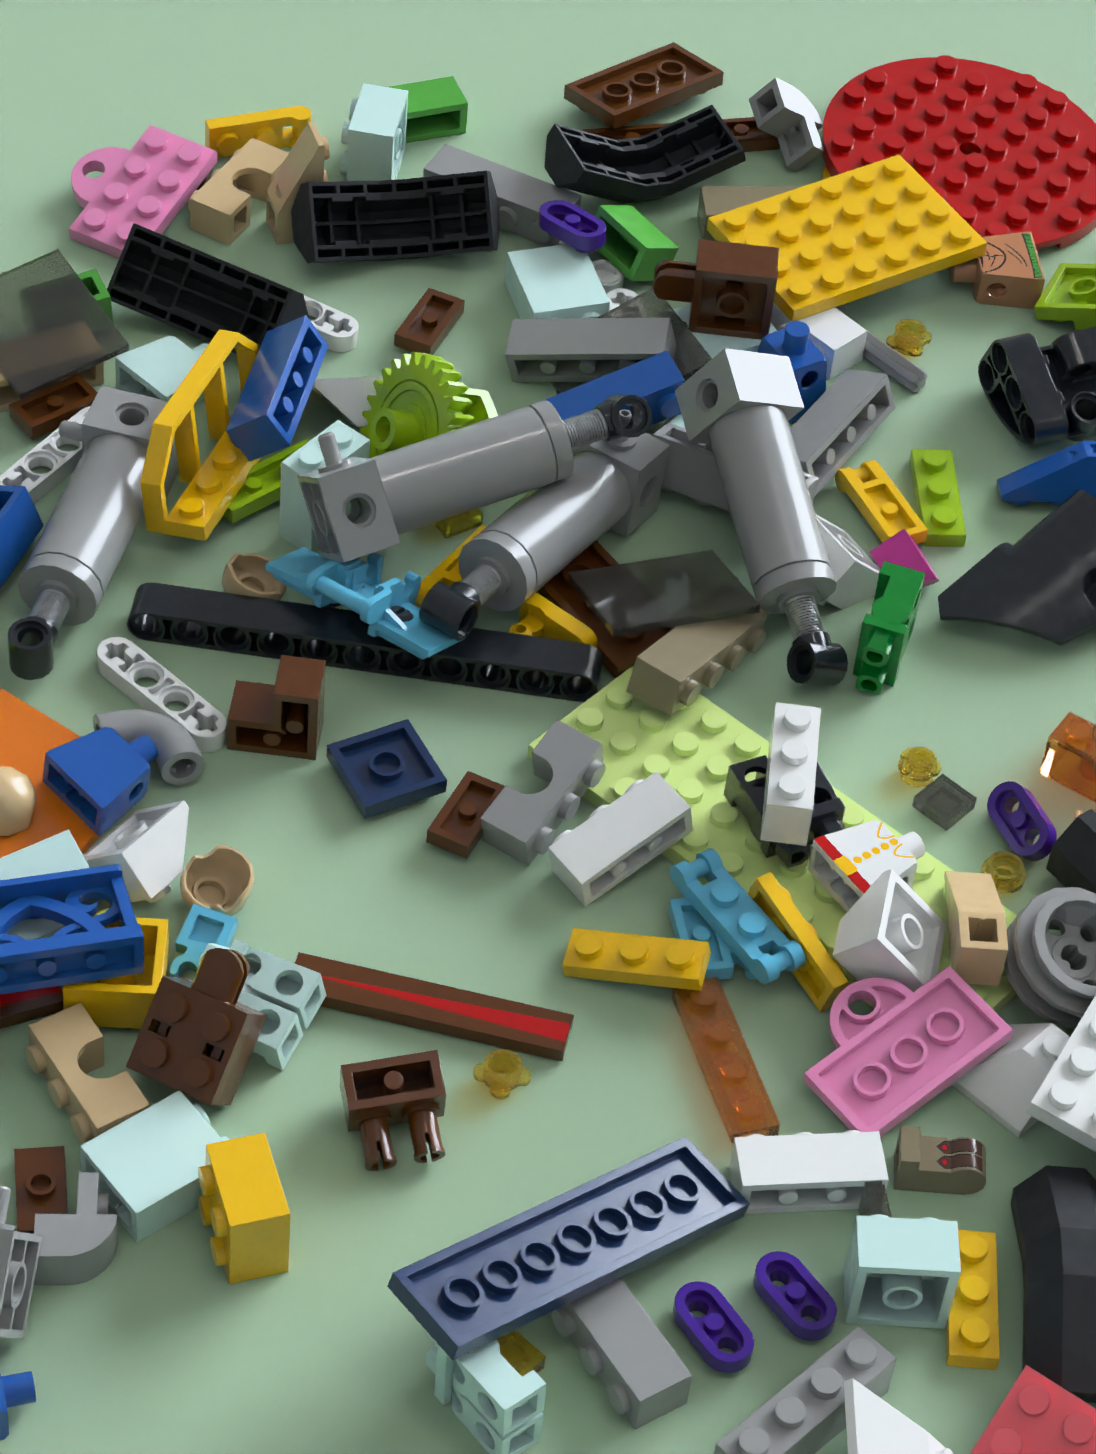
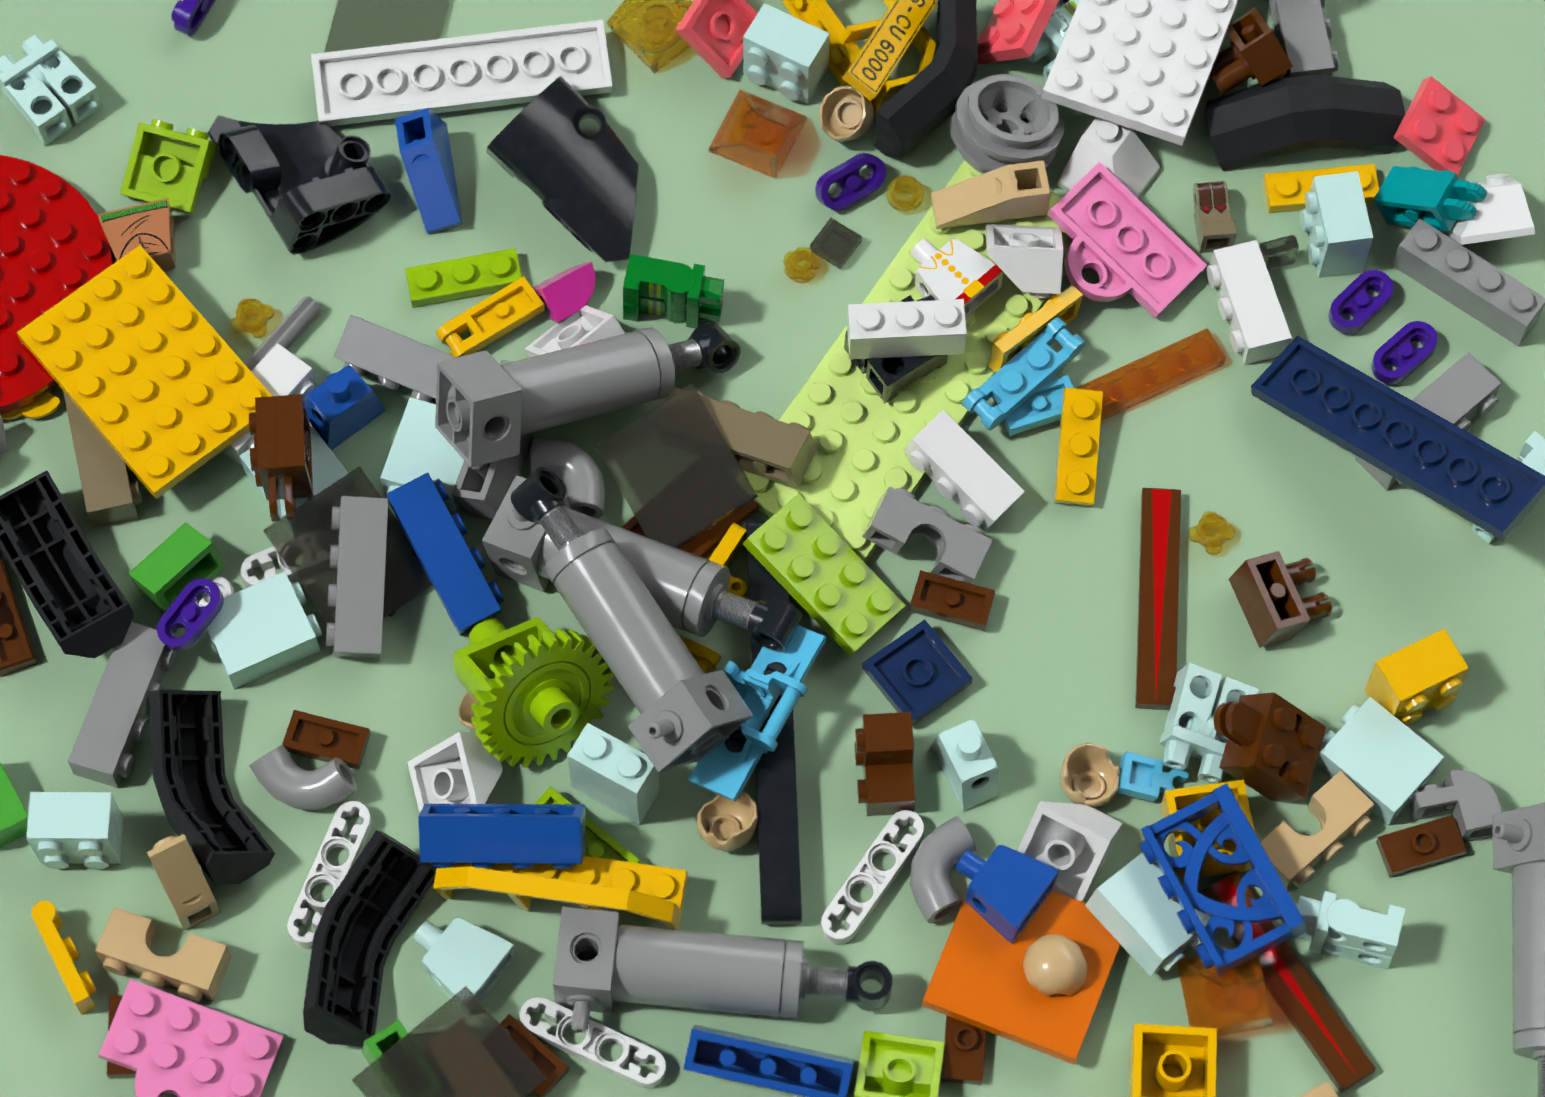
camera: 95 degrees left, 20 degrees up
(262, 776) = (964, 760): none -> light aqua torso
(386, 292) = (301, 787): none -> light grey cylinder
(517, 698) = (823, 574): none -> lime plate
(697, 532) = (575, 469): none -> light grey cylinder
(931, 1378) = (1428, 195): none -> teal hinge

